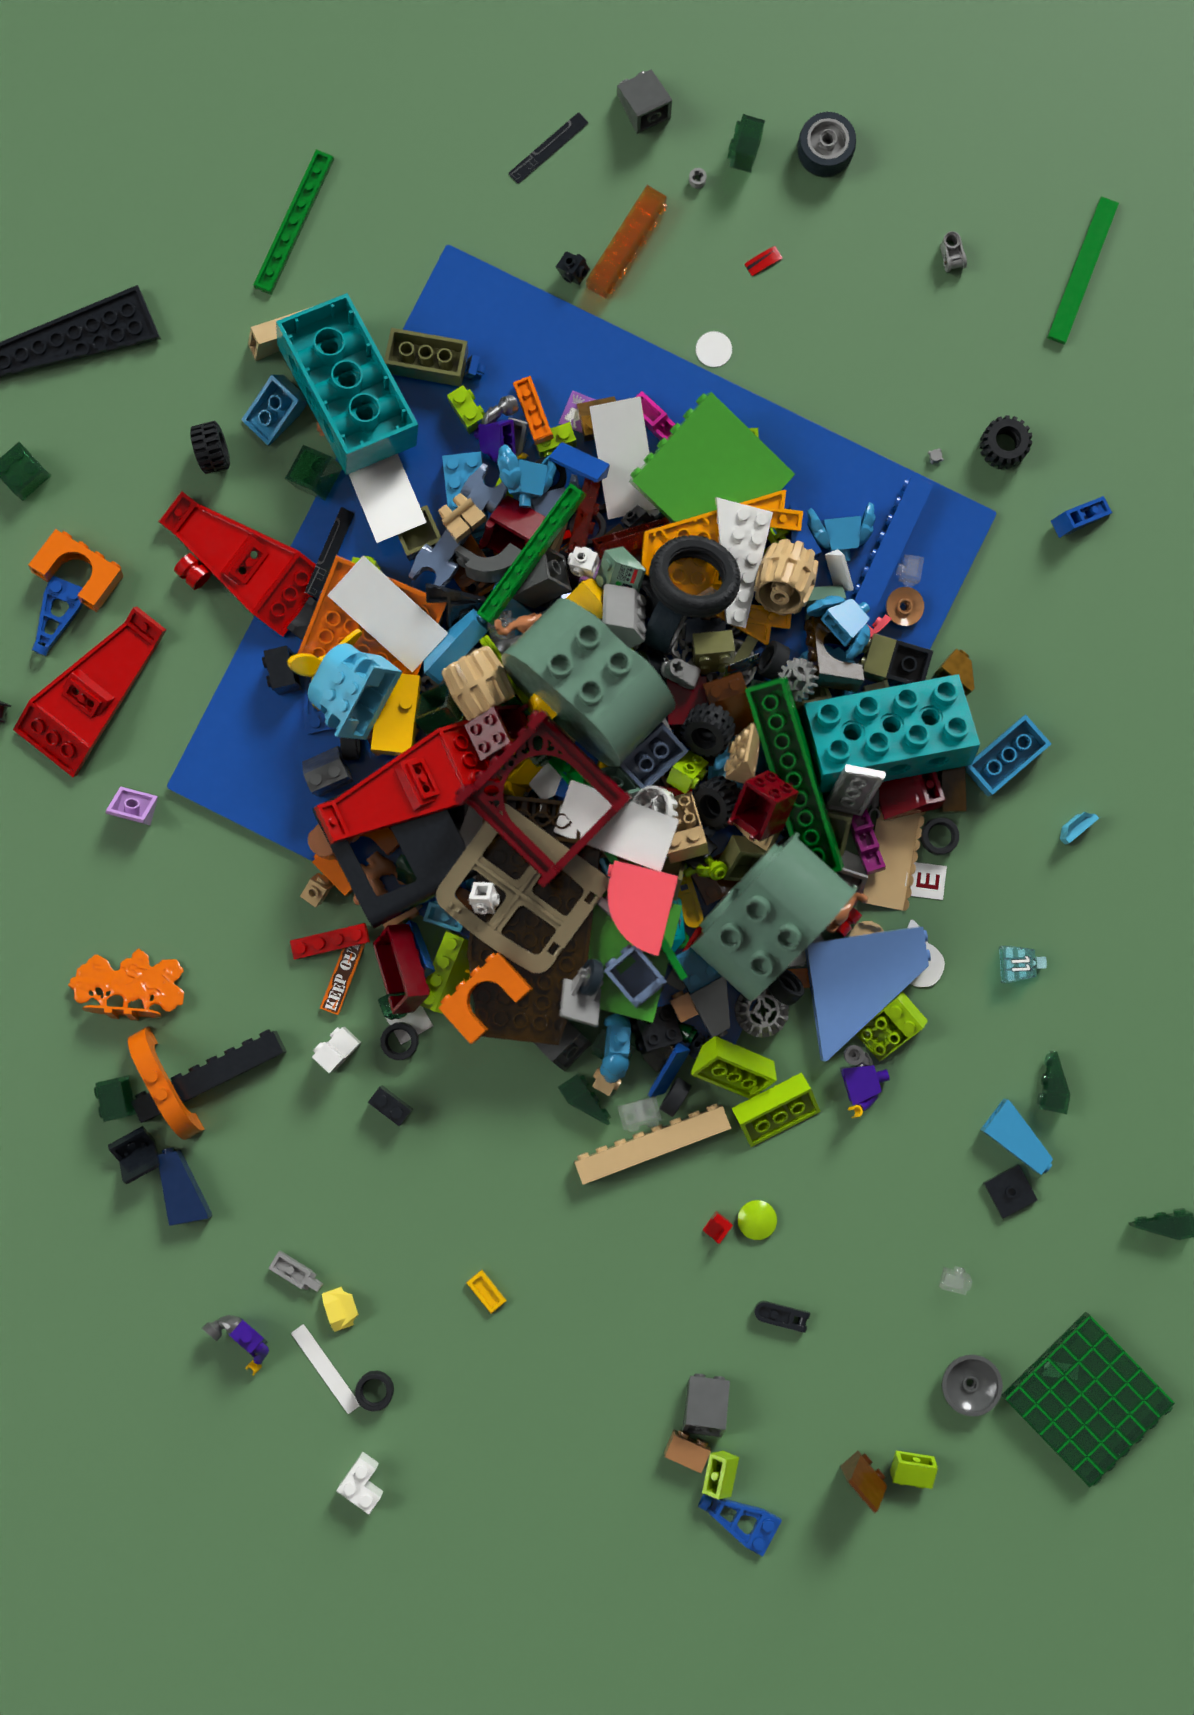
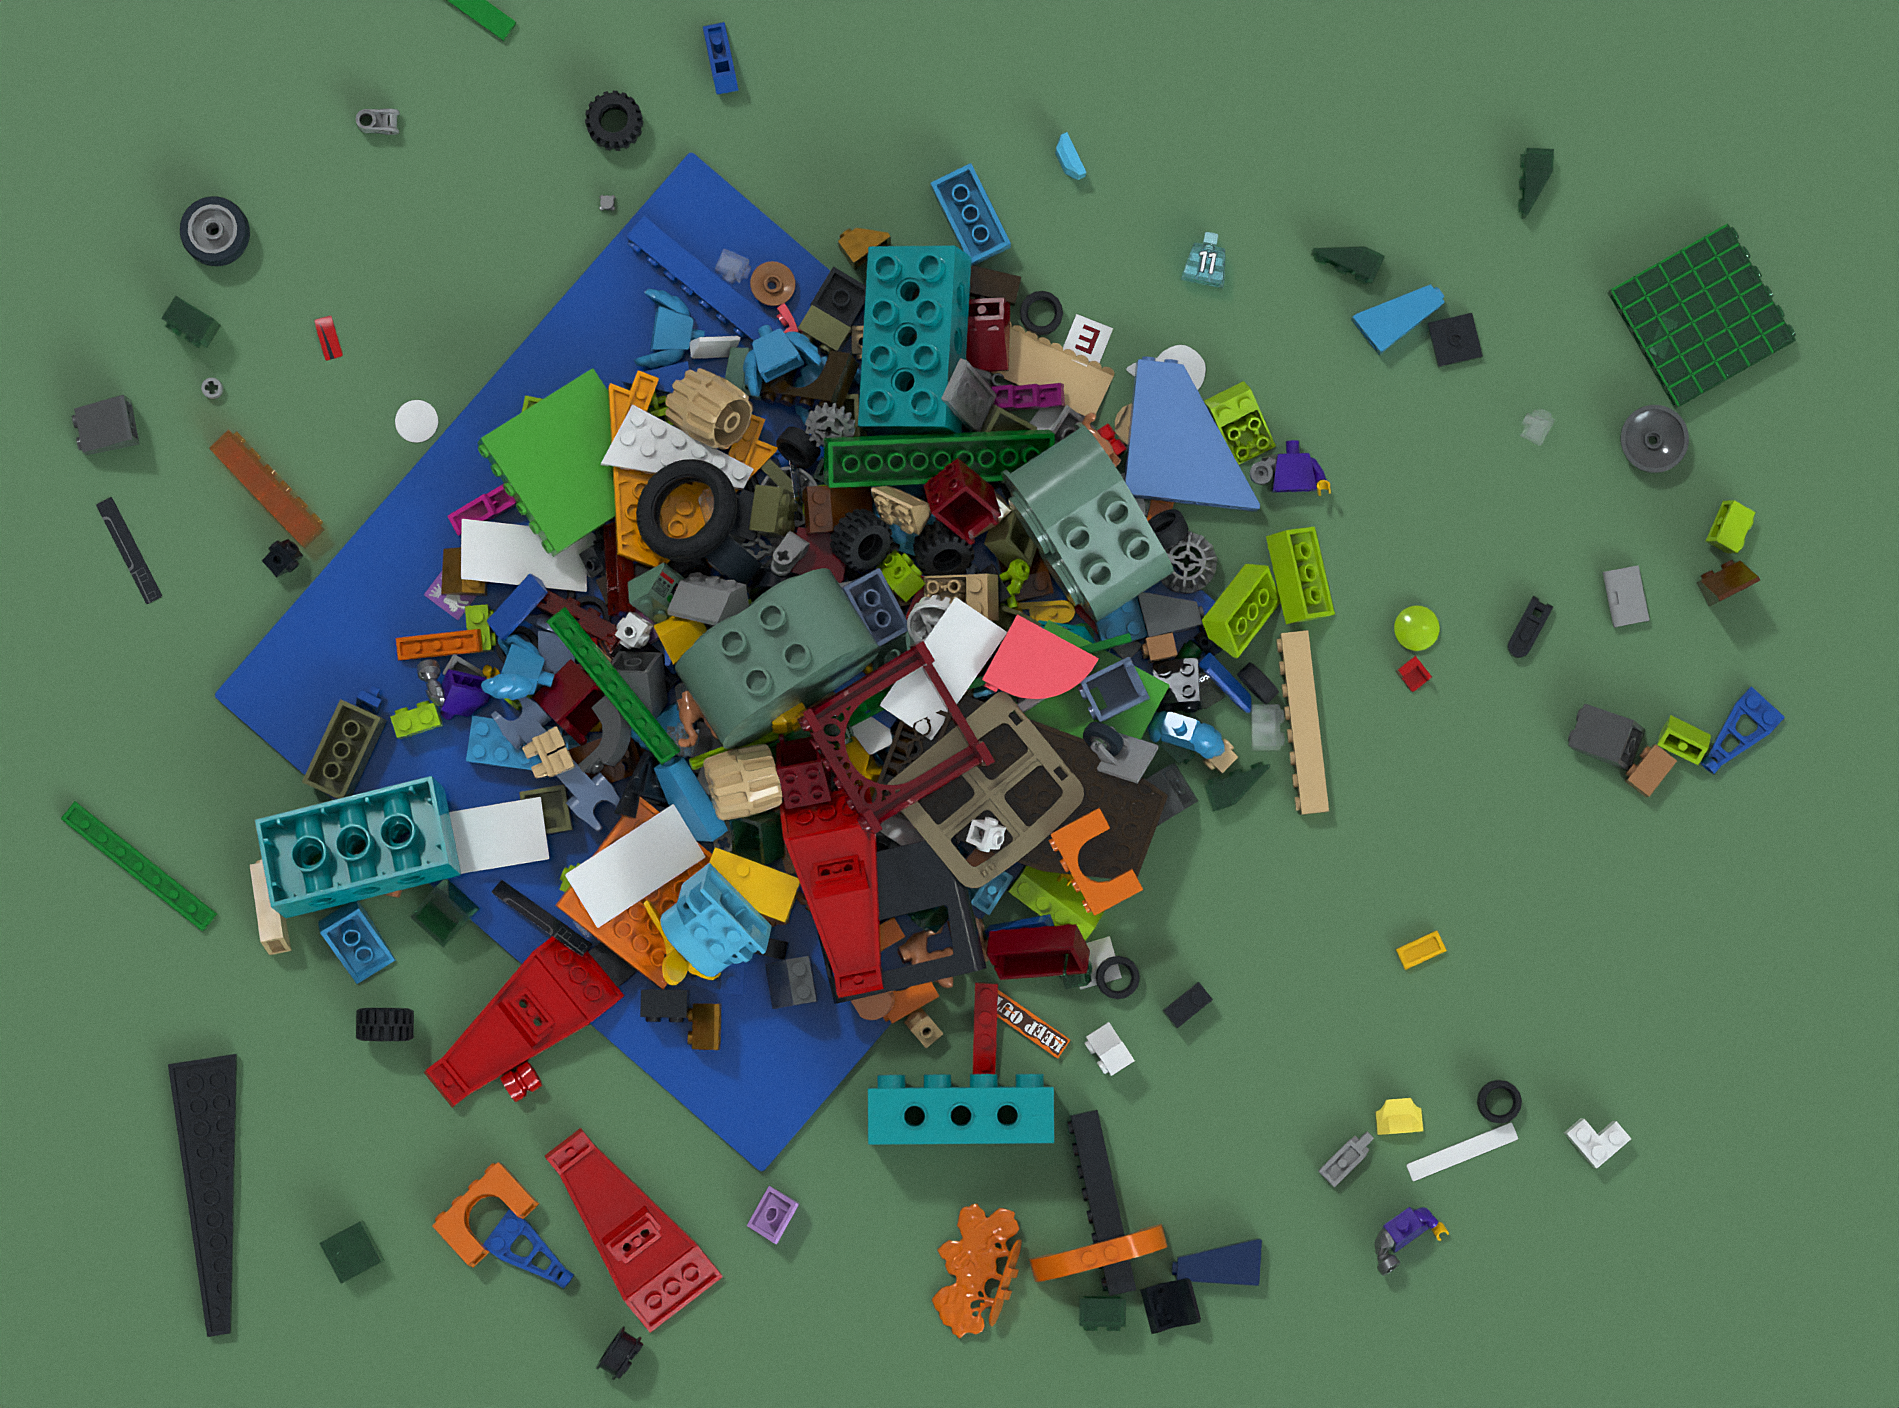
camera: 80 degrees left, 0 degrees up
(265, 952) = (983, 1098): none -> teal brick
(272, 710) = (705, 1026): none -> pearl gold slope
(830, 1392) = (1626, 596): none -> light grey piece

